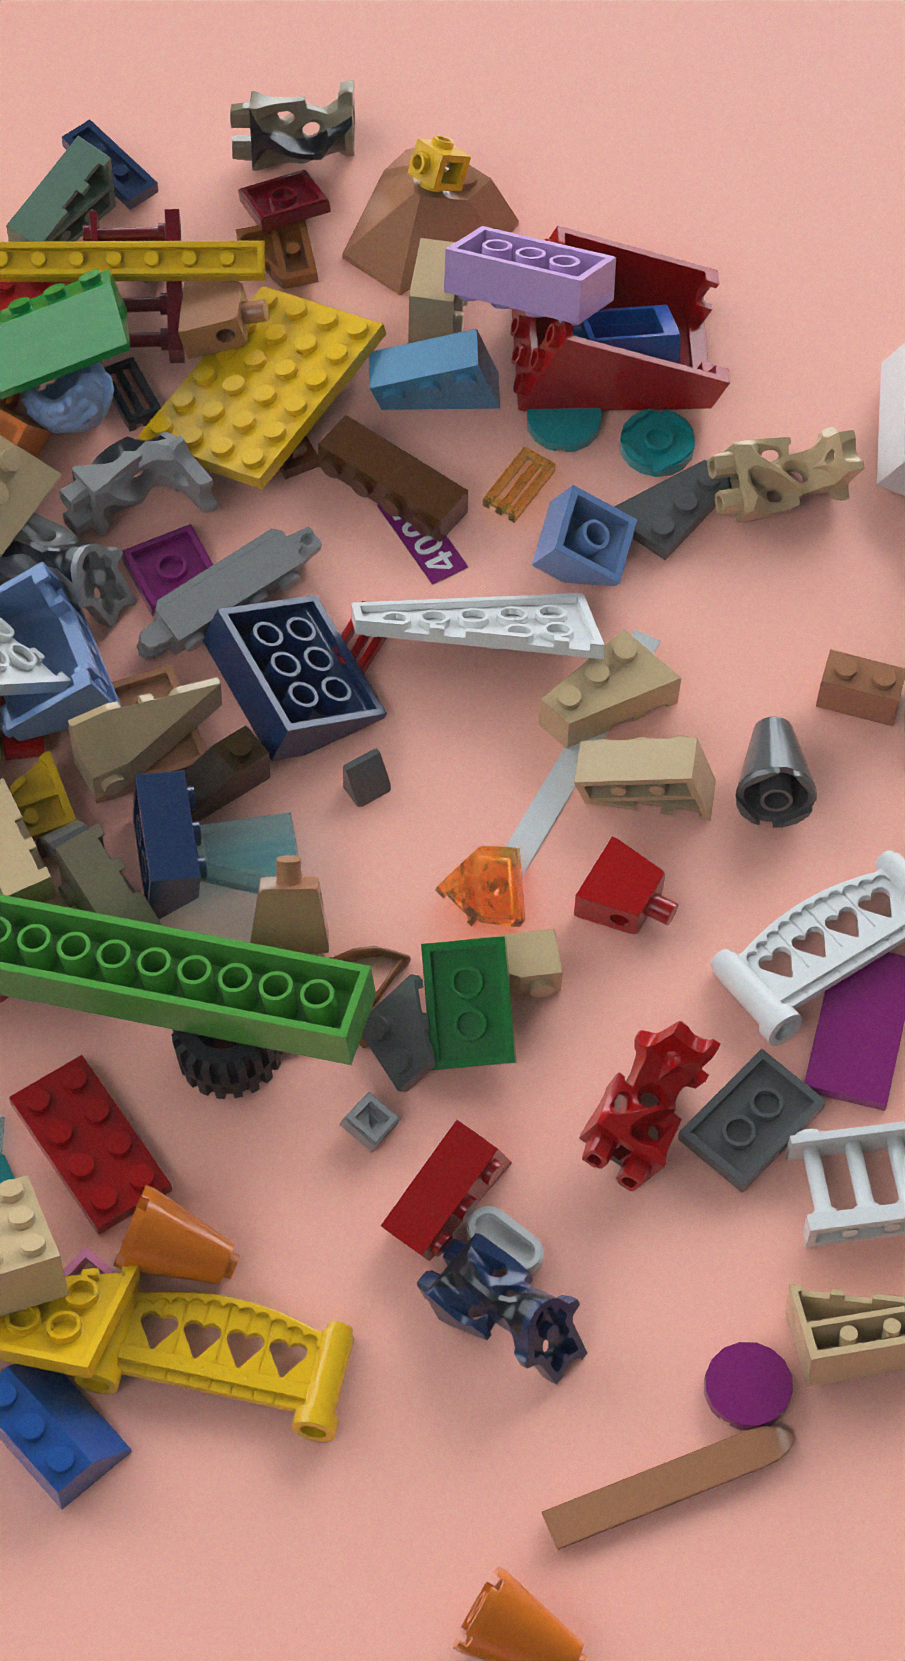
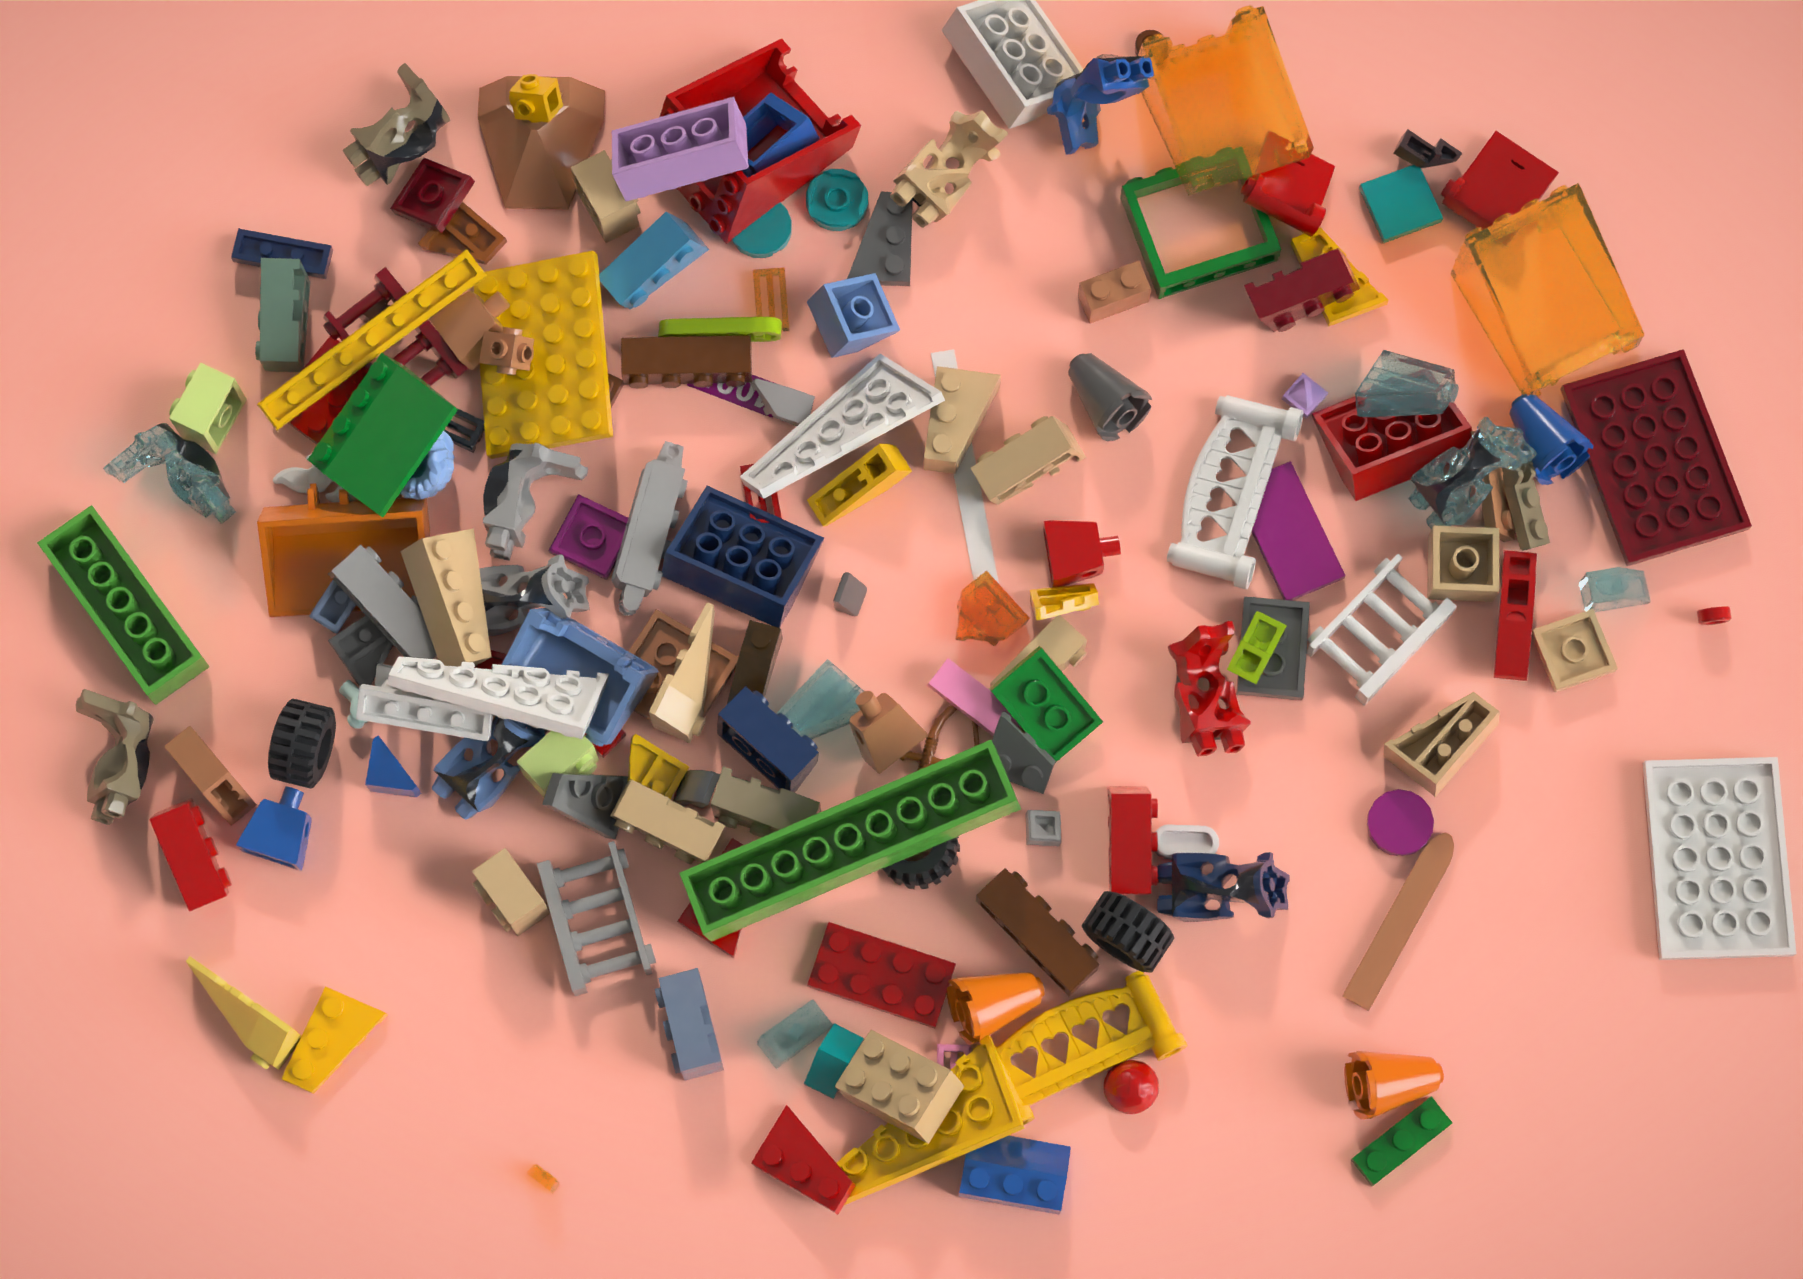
camera: 35 degrees left, 15 degrees up
(228, 350) = (507, 350): none -> nougat brick
(244, 1437) = (1131, 1086): none -> red piece
(276, 1211) = (1037, 932): none -> reddish brown brick
(364, 1270) = (1128, 931): none -> black tyre
(398, 940) = (968, 696): none -> bright pink tile
(452, 571) = (784, 402): none -> light grey slope
(467, 688) = (859, 483): none -> yellow slope
(483, 491) = (760, 328): none -> lime beam
(555, 915) = (1063, 600): none -> yellow wing
(732, 1103) = (1256, 647): none -> lime slope

